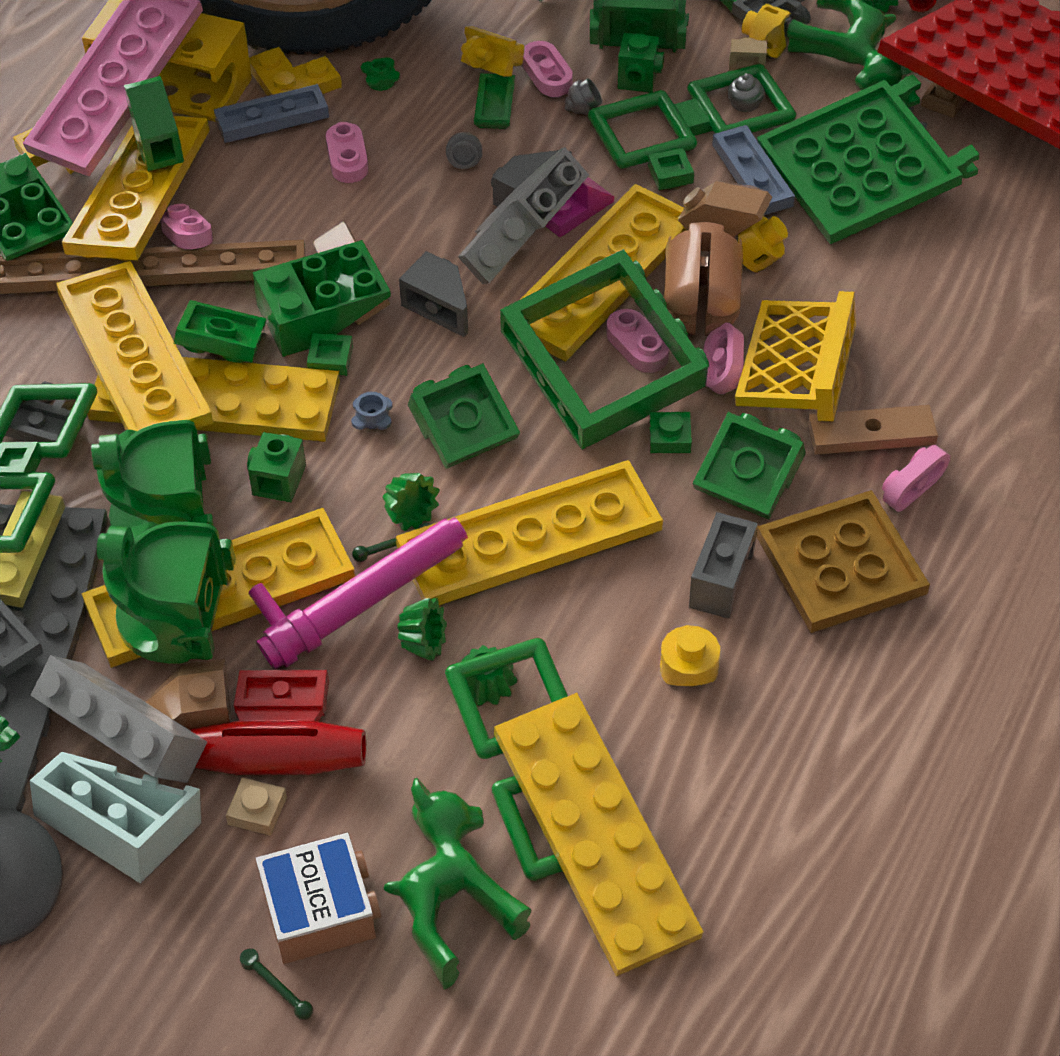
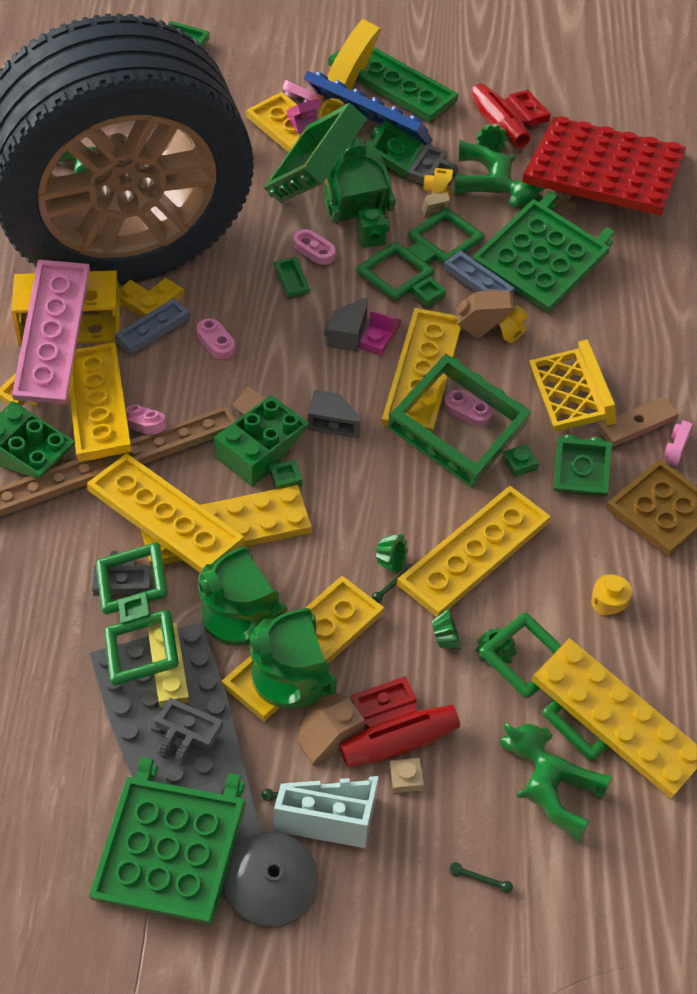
camera: 25 degrees left, 0 degrees up
(119, 719) = (299, 751): light grey brick -> none
(153, 123) = (95, 357): green slope -> none
(220, 332) = (211, 482): green plate -> none
(276, 466) = (295, 558): green brick -> none
(306, 628) = (377, 654): dark pink cylinder -> none
(318, 897) = (479, 817): piece -> none
(372, 411) = (332, 498): sand blue plate -> none
(380, 73) = (207, 279): green plate -> none
(462, 414) = (393, 488): green plate -> none
(464, 150) = (293, 316): flat silver plate -> none
(491, 51) = (274, 245): yellow hips -> none
(521, 214) = (361, 343): light grey slope -> none
(582, 97) = (348, 260): flat silver plate -> none
(718, 270) = (495, 355): nougat cylinder -> none
(721, 564) = (601, 532): dark grey panel -> none
(725, 356) = (533, 402): bright pink plate -> none
(745, 93) = (446, 229): flat silver plate -> none

